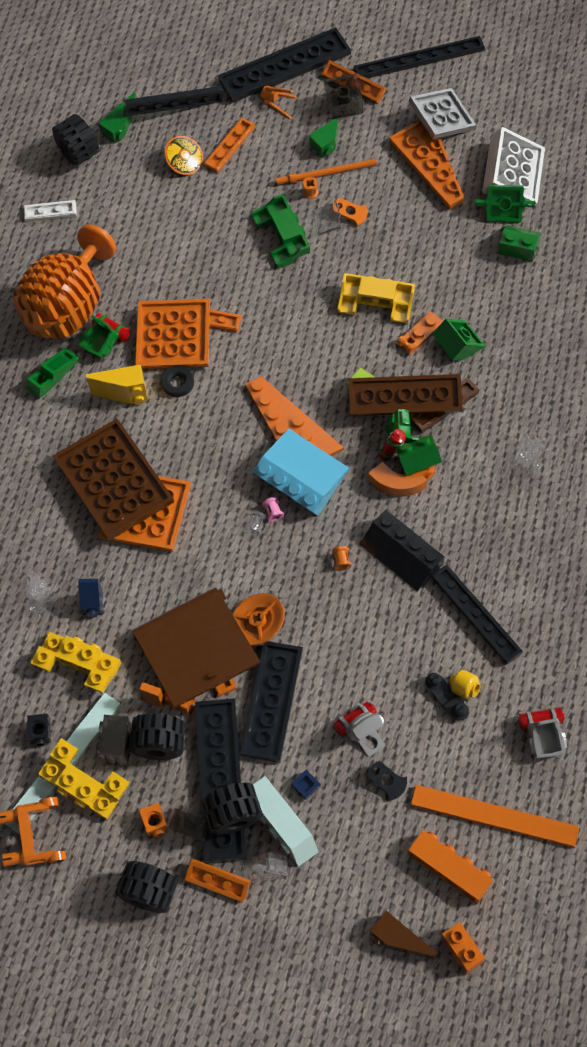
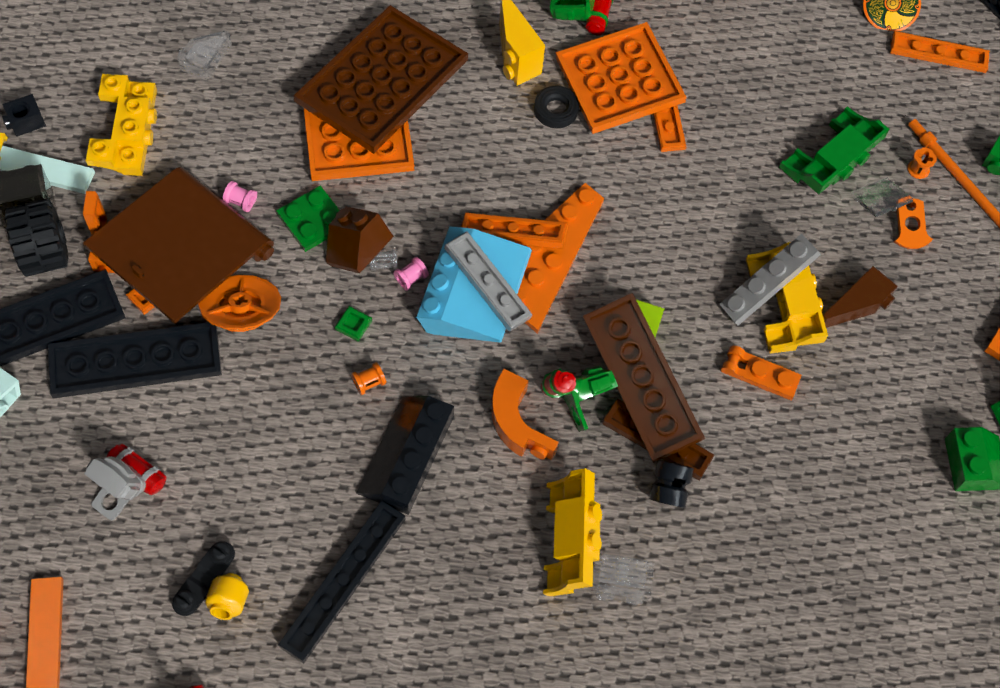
camera: 60 degrees right, 0 degrees up
(90, 597) = (210, 108): dark blue slope -> none
(169, 600) = (239, 196): none -> bright pink bush
(203, 559) = (309, 217): none -> green plate
(238, 533) = (355, 239): none -> reddish brown slope
(266, 435) = (519, 230): none -> orange tile
(295, 557) = (353, 323): none -> green tile
(305, 784) = (26, 437): dark blue plate -> none
(306, 459) = (488, 281): none -> light grey tile
(364, 301) = (770, 279): none -> light grey plate
(390, 253) = (862, 299): none -> reddish brown slope
(398, 783) = (54, 554): black piece -> none
(419, 455) = (553, 422): green slope -> none
(457, 339) = (772, 424): green slope -> none
(480, 406) = (667, 493): none -> black wheel
(494, 466) = (575, 532): none -> yellow bracket

